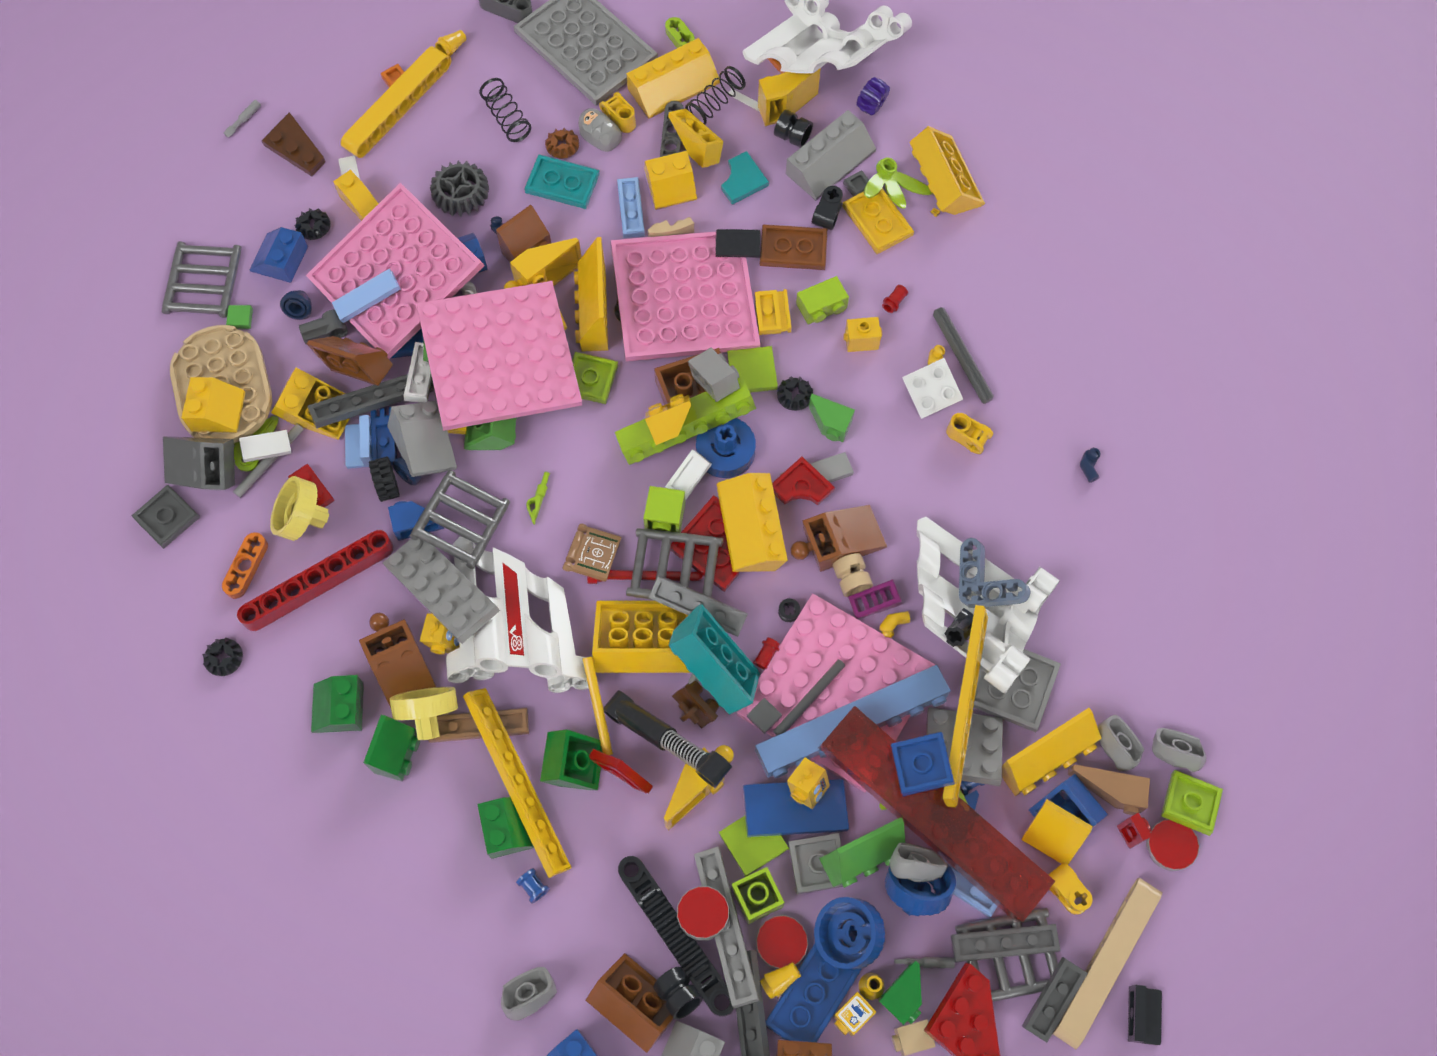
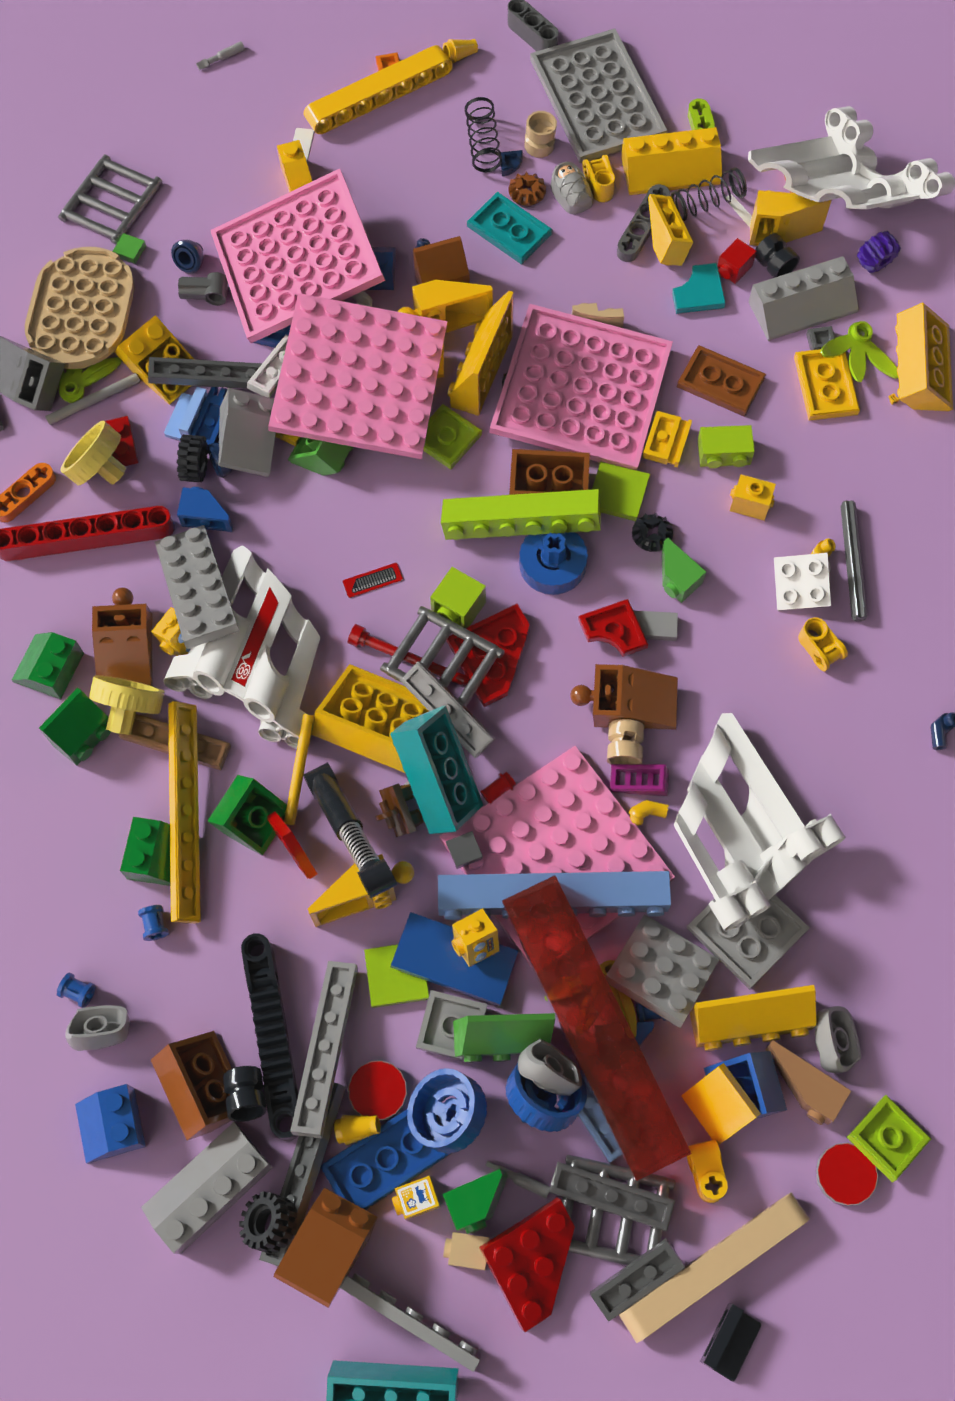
camera: 25 degrees right, 0 degrees up
(212, 405) = (59, 323): yellow slope -> none
(265, 445) = (93, 382): white tile -> none
(280, 254) = (196, 202): blue slope -> none
(294, 145) = (258, 99): reddish brown wing -> none
(320, 227) = (246, 188): black gear -> none
(352, 358) = (215, 327): dark orange slope -> none
(366, 295) = (257, 270): light blue tile -> none
(440, 496) = (260, 557): flat silver bar -> none
(455, 182) = (402, 205): dark grey gear -> none
(500, 970) = (67, 986): none -> blue bush
(538, 125) = (511, 161): none -> dark blue tile
(540, 494) = (337, 538): lime hand -> none
(553, 92) = (540, 134): none -> tan wheel
(589, 517) = (372, 580): none -> sticker
(592, 552) = (365, 613): medium nougat piece -> none
(630, 207) = (568, 279): light blue tile -> none
(667, 419) = (497, 506): yellow slope -> none
(670, 180) = (620, 264): yellow slope -> none
(689, 473) = (501, 571): white tile -> none
(703, 913) = (306, 1023): red tile -> none
(714, 374) = (569, 476): light grey brick -> none
(737, 243) = (660, 353): black slope -> none
(752, 523) = (542, 647): yellow slope -> none
(757, 895) = (371, 1031): lime head -> none
(762, 143) = (736, 261): none -> red brick
(789, 602) = (545, 745): black bush -> none
(809, 698) = (521, 850): dark grey piece -> none
(828, 208) = (776, 352): black piece -> none
(866, 991) = (444, 1185): yellow cone -> none
(892, 302) = (801, 475): red pin -> none
(922, 764) = (597, 965): blue tile -> none
(960, 628) = (714, 844): black piece -> none
(966, 704) = (674, 926): yellow tile -> none
(977, 583) = (754, 804): sand blue beam -> none
(1135, 830) = (808, 1139): red plate -> none
(1178, 749) = (900, 1074): light grey piece -> none

